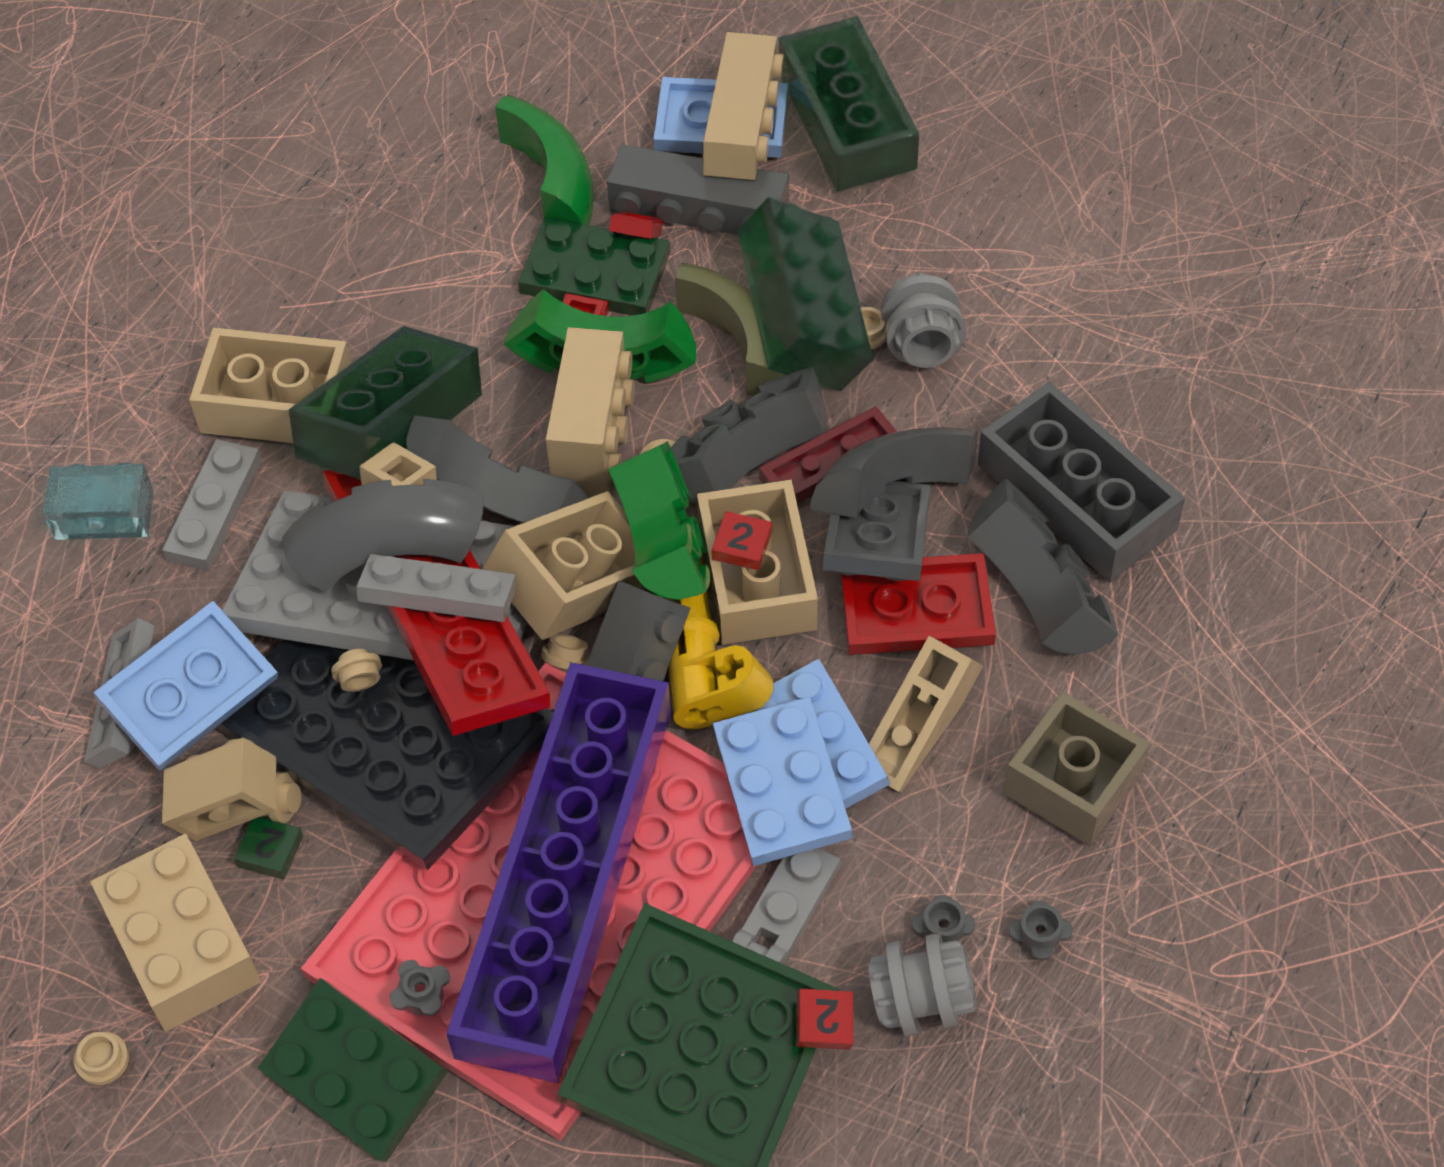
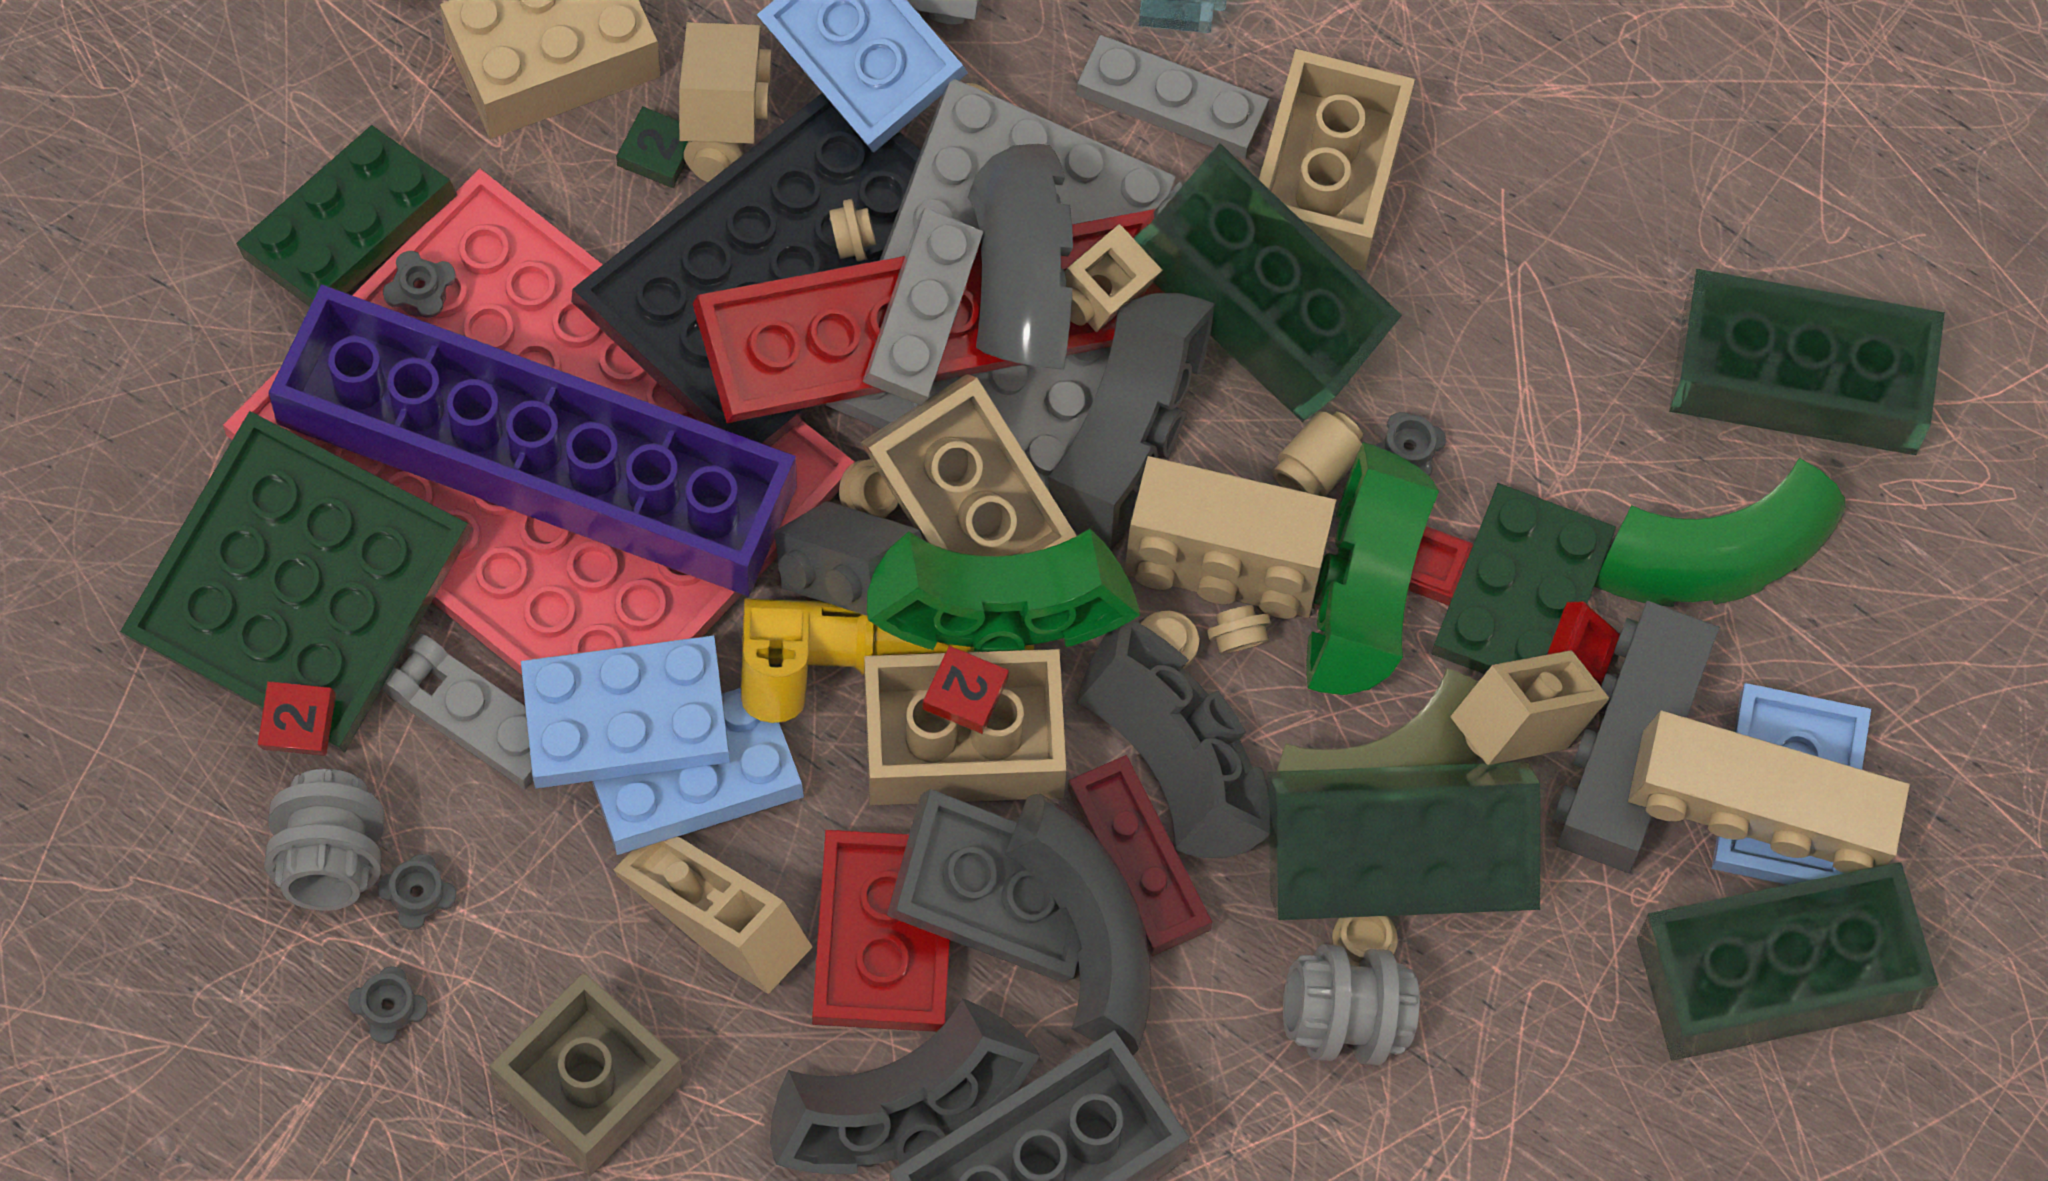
camera: 90 degrees right, 10 degrees up
(416, 118) = (1807, 362): none -> clear green brick
(488, 326) = (1420, 432): none -> dark grey plate
(510, 381) = (1319, 454): none -> tan brick
(650, 414) = (1239, 629): none -> tan plate
(699, 230) = (1529, 707): none -> tan brick

